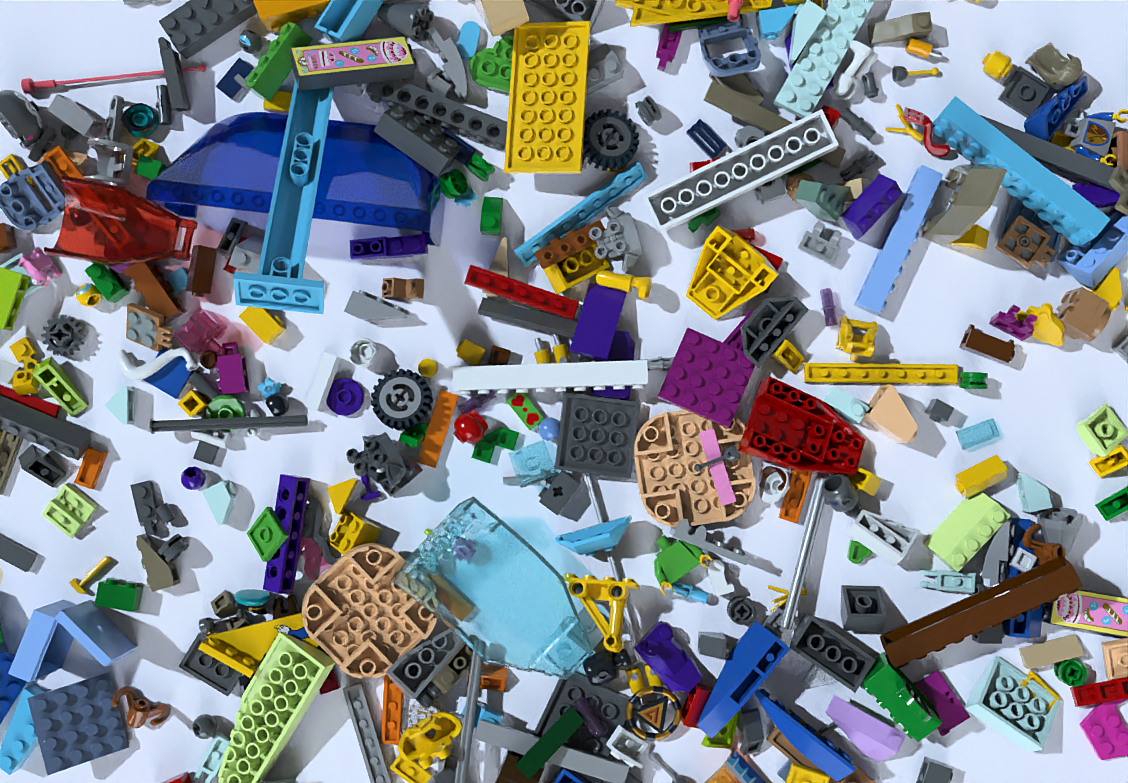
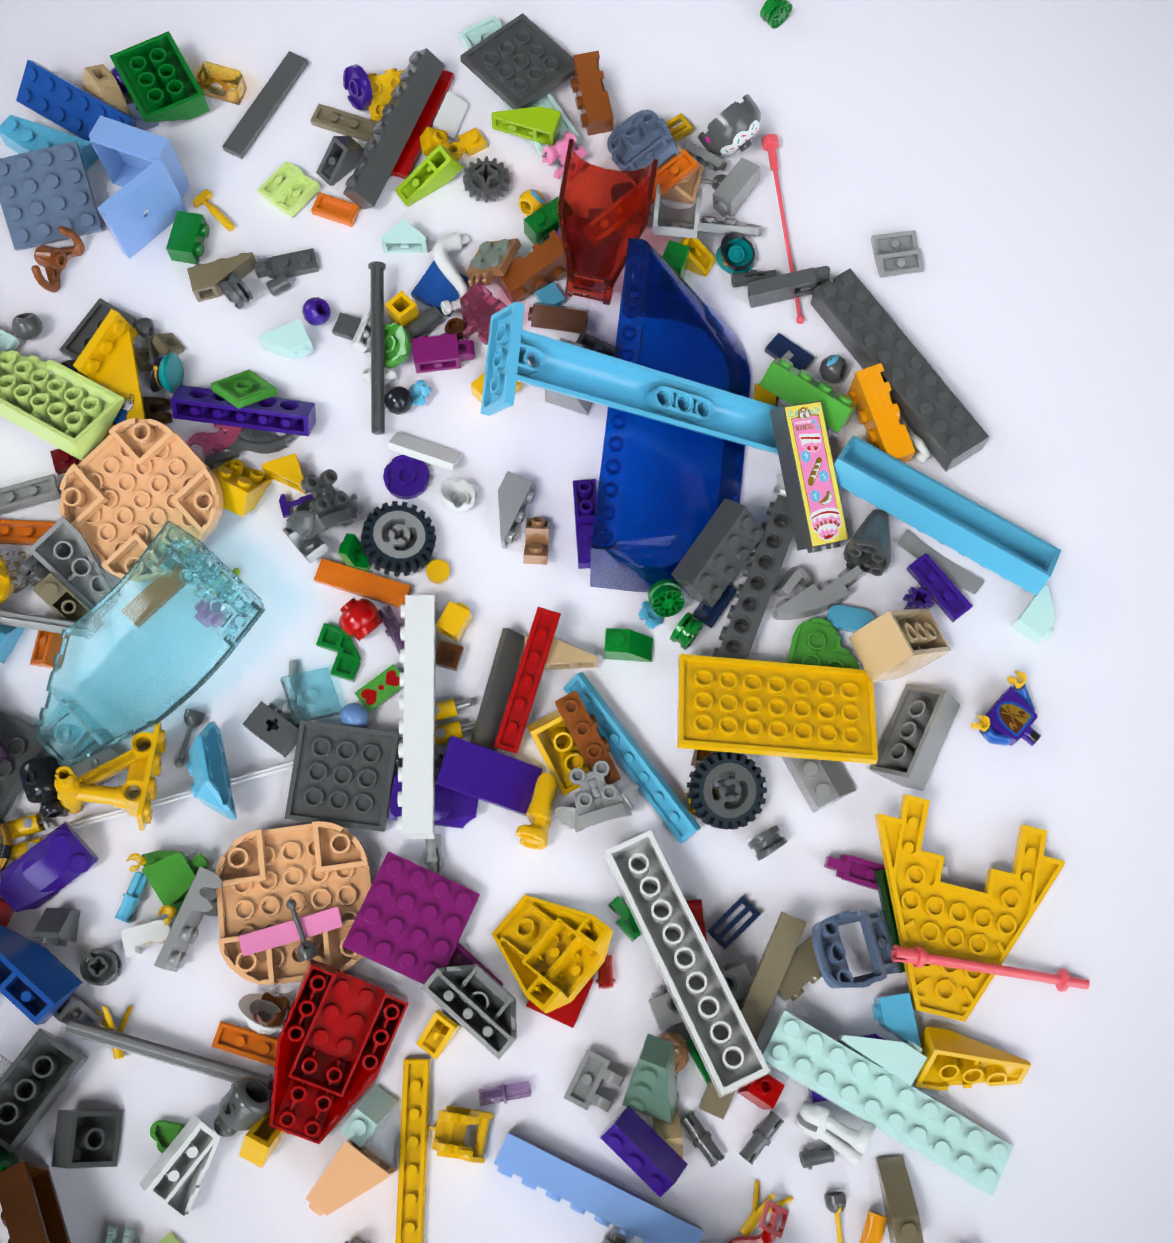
camera: 85 degrees right, 15 degrees down
(551, 556) = (192, 719): none -> hinge

